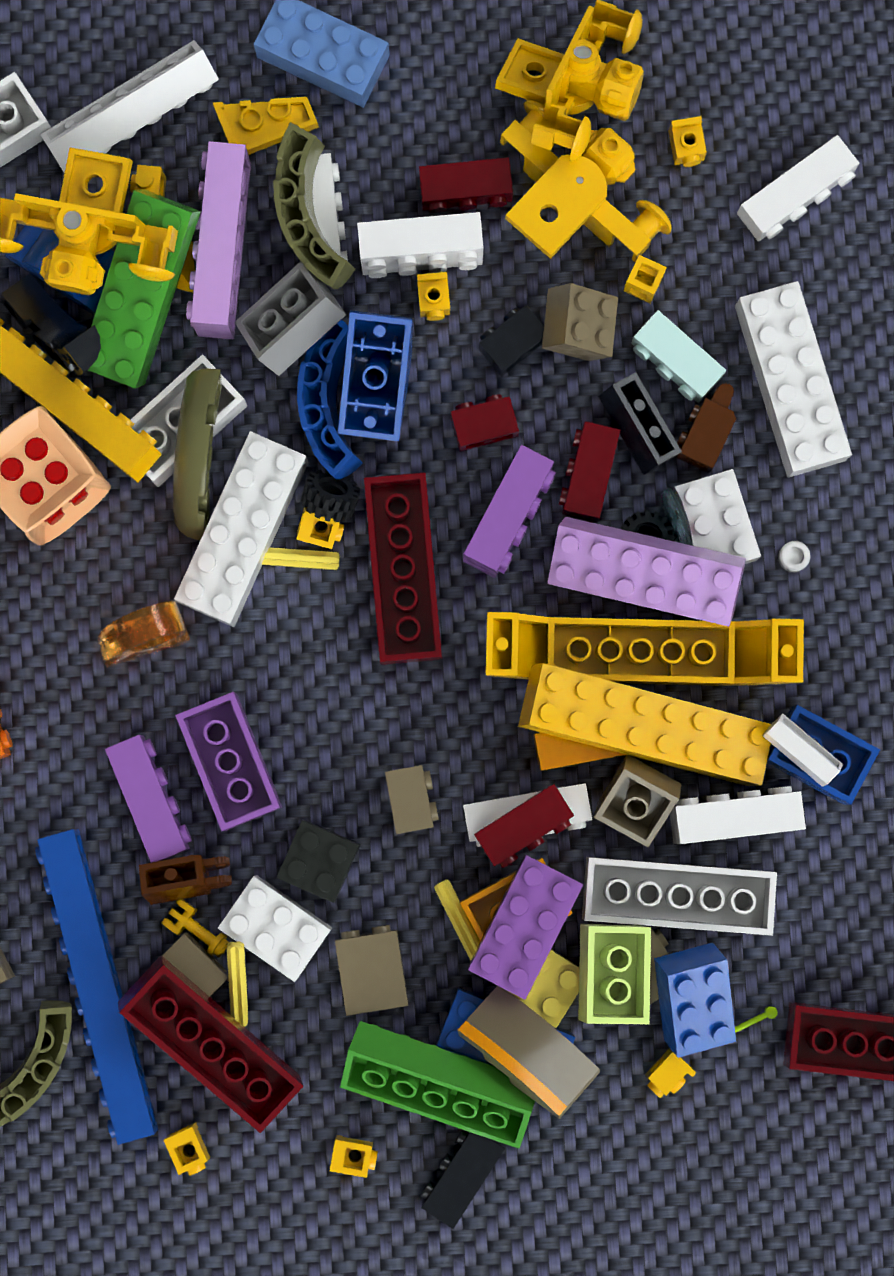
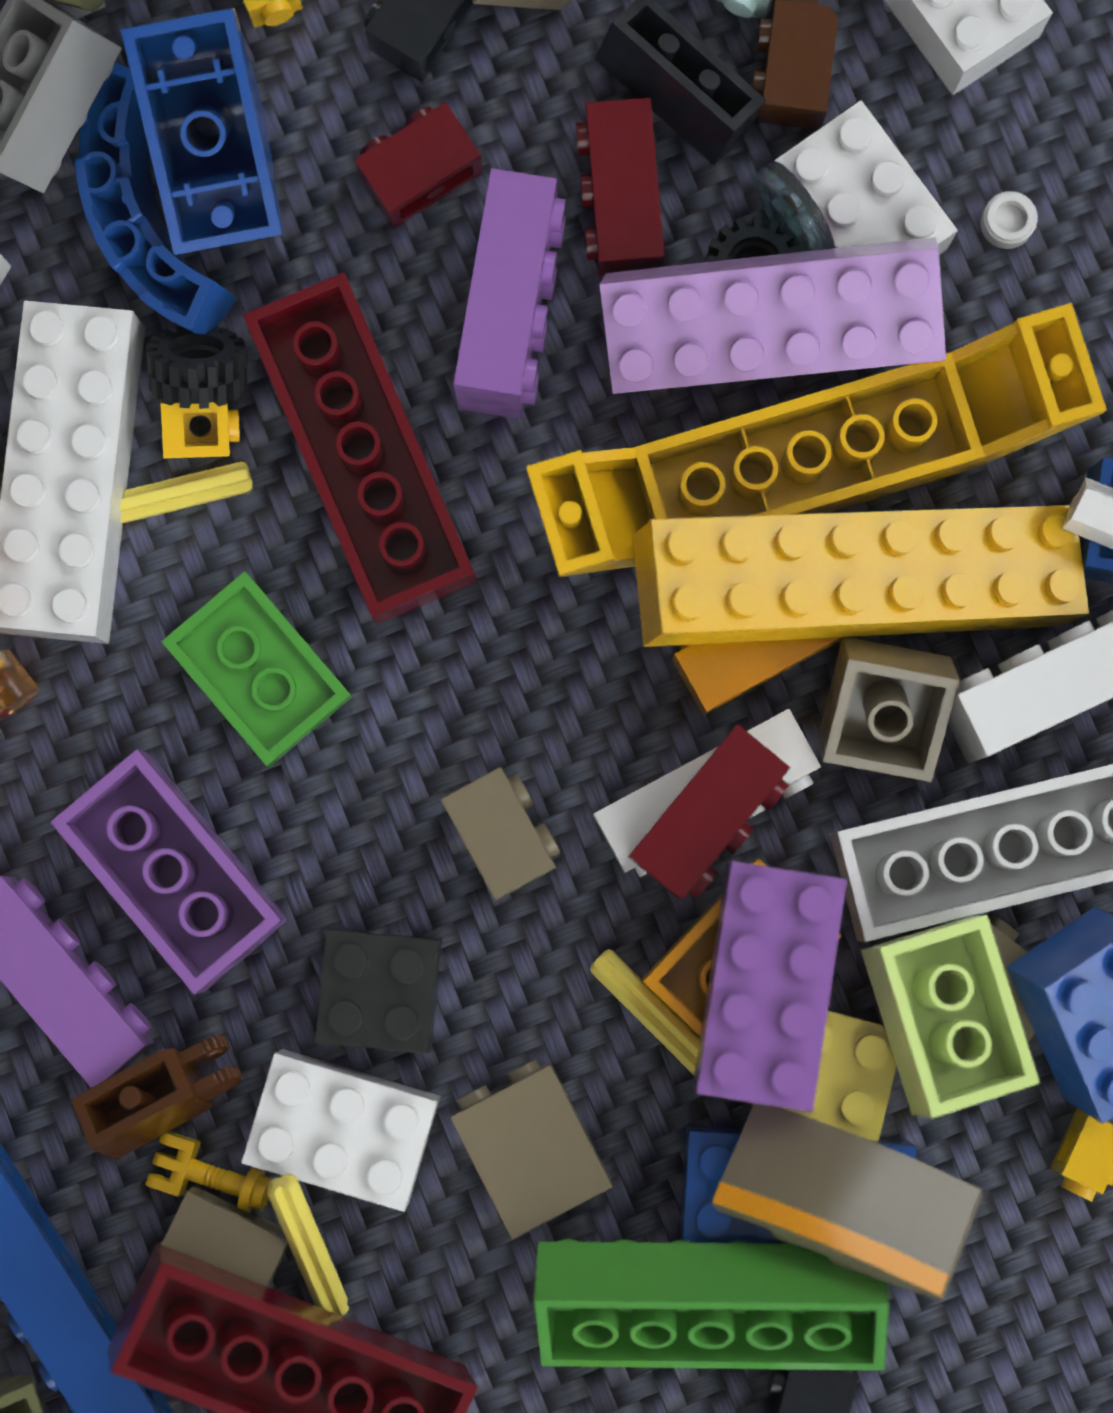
camera: 15 degrees left, 0 degrees up
(309, 667) = (256, 669): none -> bright green plate

